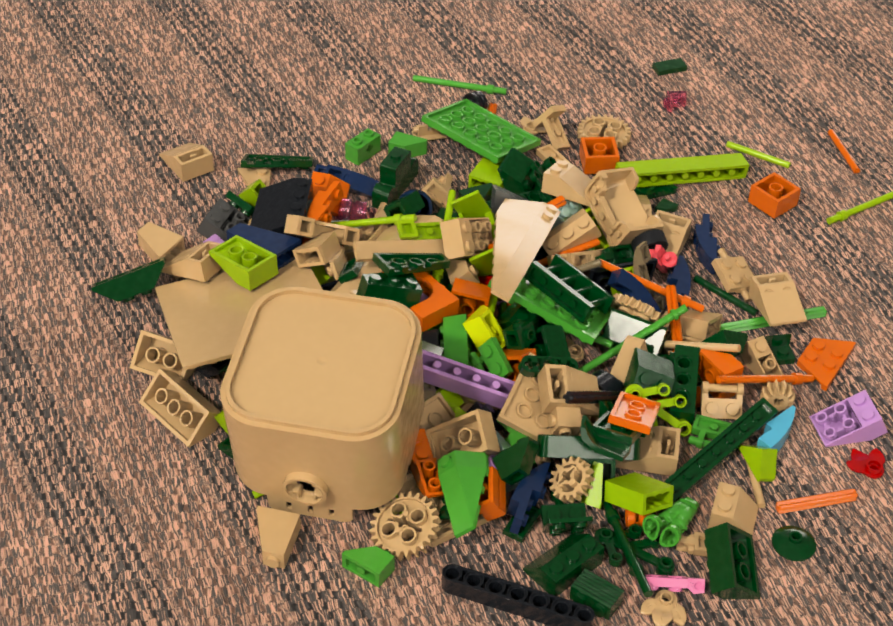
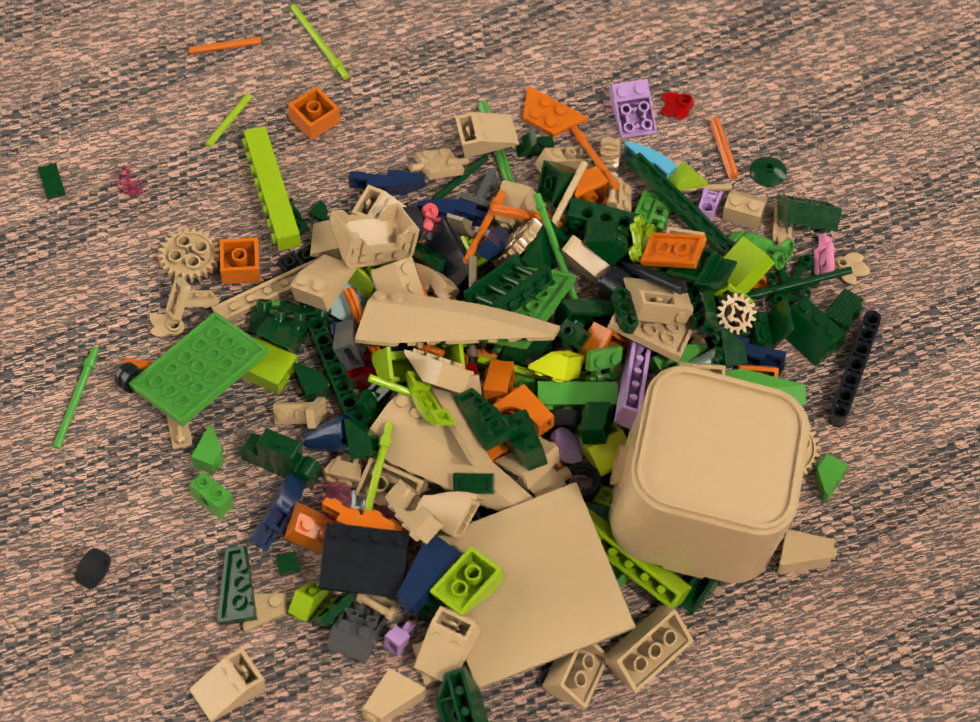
camera: 90 degrees left, 15 degrees up
(303, 83) = (92, 568): none -> black tyre
(711, 304) = (484, 193): none -> dark grey bracket
(729, 475) = (710, 202): none -> lavender piece

